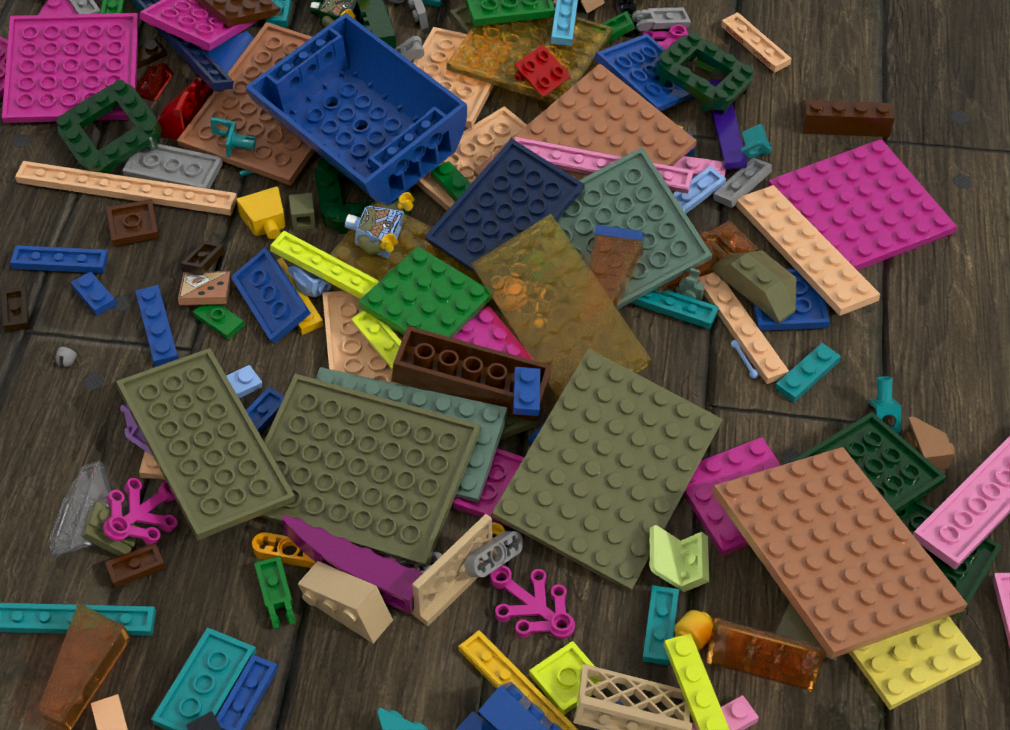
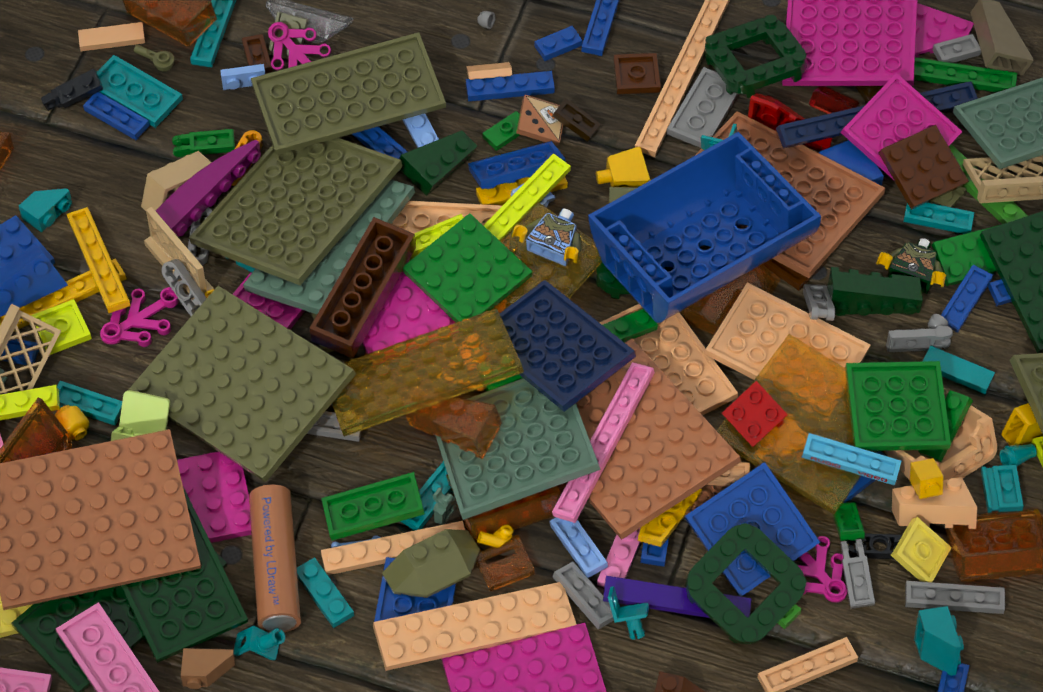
camera: 100 degrees right, 5 degrees up
(140, 341) = (489, 70): none -> light nougat tile
(149, 668) = (162, 60): none -> olive plate
(177, 578) = (240, 76): none -> light blue plate
(275, 356) = (437, 160): none -> dark green wedge
(465, 660) = (98, 260): none -> yellow tile
(526, 391) = (321, 316): blue plate -> none
(619, 232) = (500, 433): blue plate -> none
(709, 342) = (372, 506): none -> green plate
(713, 243) = (496, 539): none -> yellow arm
(796, 406) = (274, 558): none -> nougat piece

